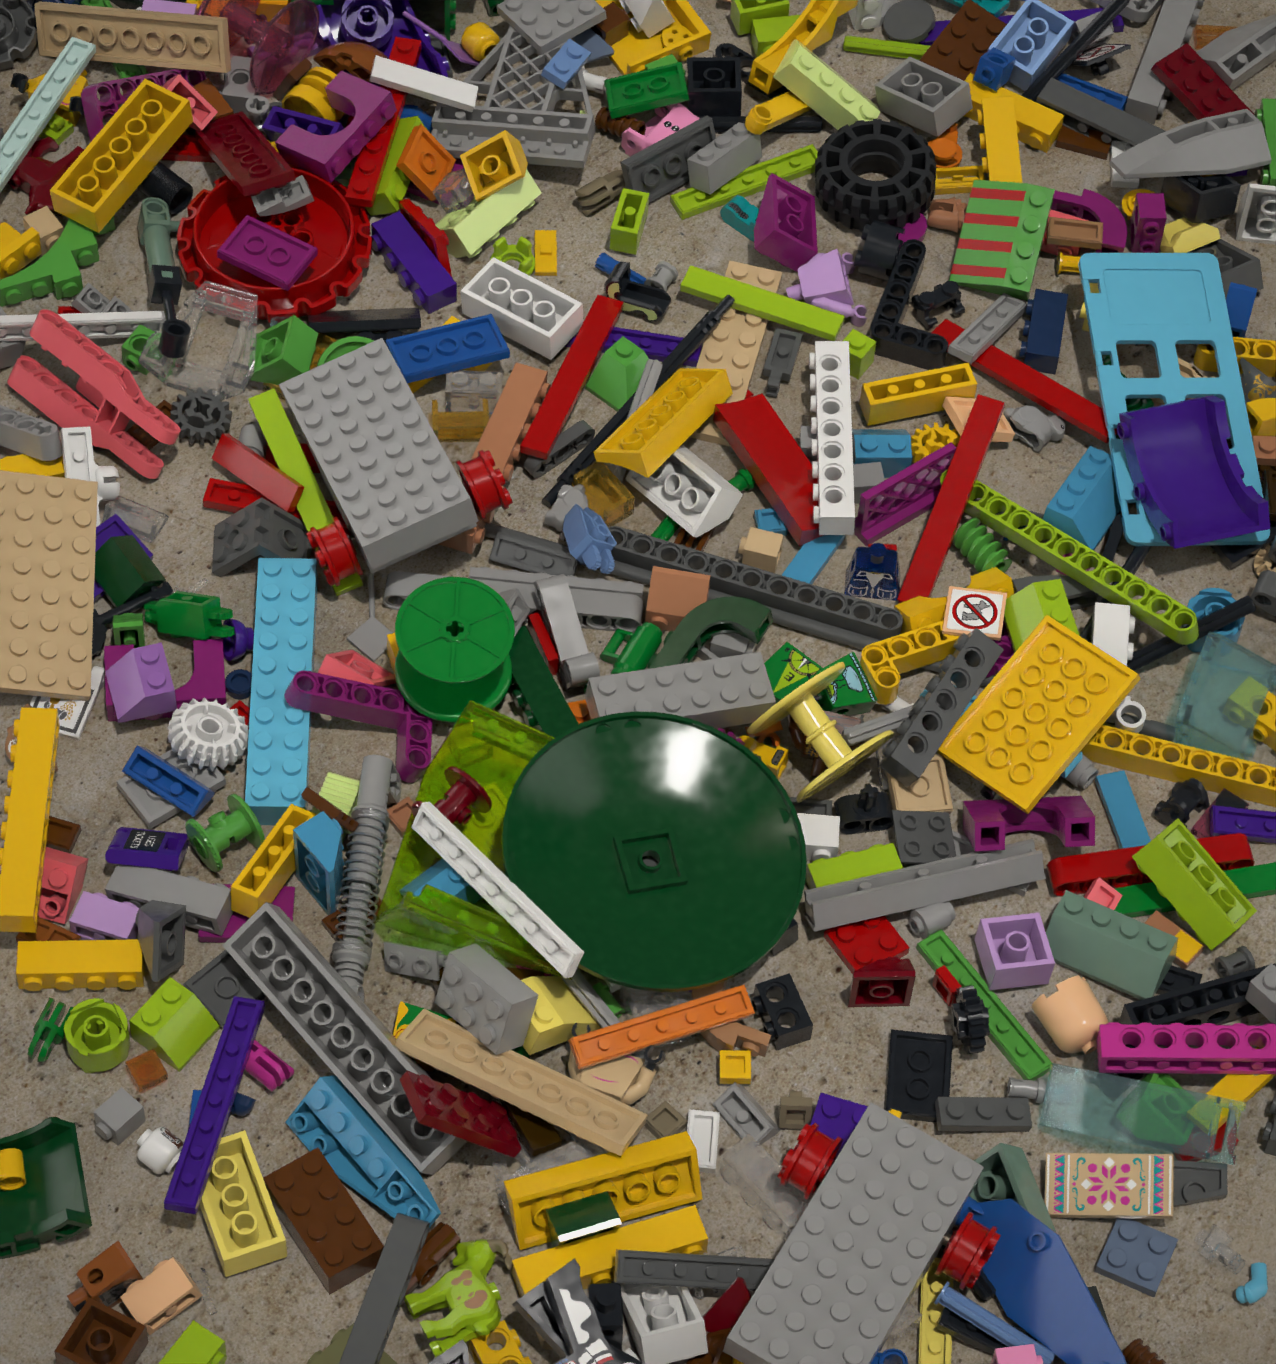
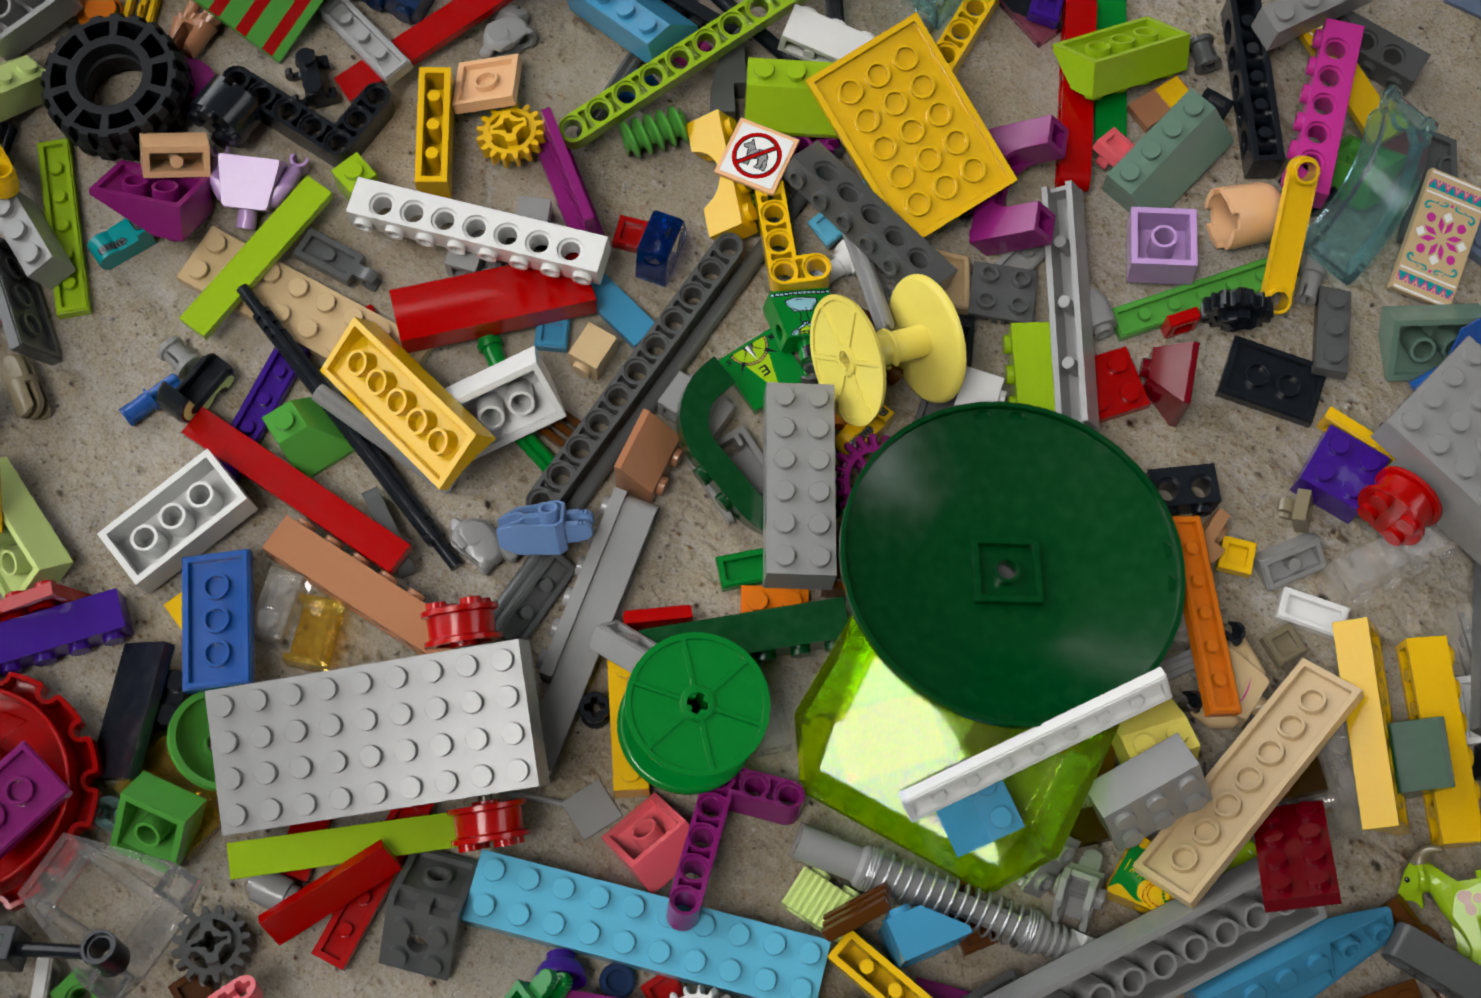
camera: 75 degrees left, 15 degrees up
(393, 984) = (1080, 890): none -> light grey hinge
(400, 814) = (845, 828): nougat tile -> none
(458, 800) = (881, 766): dark red hose -> none
(519, 252) = (82, 503): lime piece -> none
(545, 253) = (89, 476): yellow piece -> none
(565, 632) = (652, 587): light grey beam -> none
(605, 493) = (469, 497): clear yellow panel -> none
(629, 221) = (86, 368): lime brick -> none
(638, 650) = (698, 522): green piece -> none
(826, 223) = (174, 155): none -> light nougat brick
(886, 446) = (495, 183): dark azure slope -> none
(952, 498) = (602, 134): red tile -> none
(1055, 1040) = (1290, 231): none -> yellow piece
(1122, 810) = (1010, 99): dark azure tile -> none
(1183, 800) = (1014, 40): black piece -> none

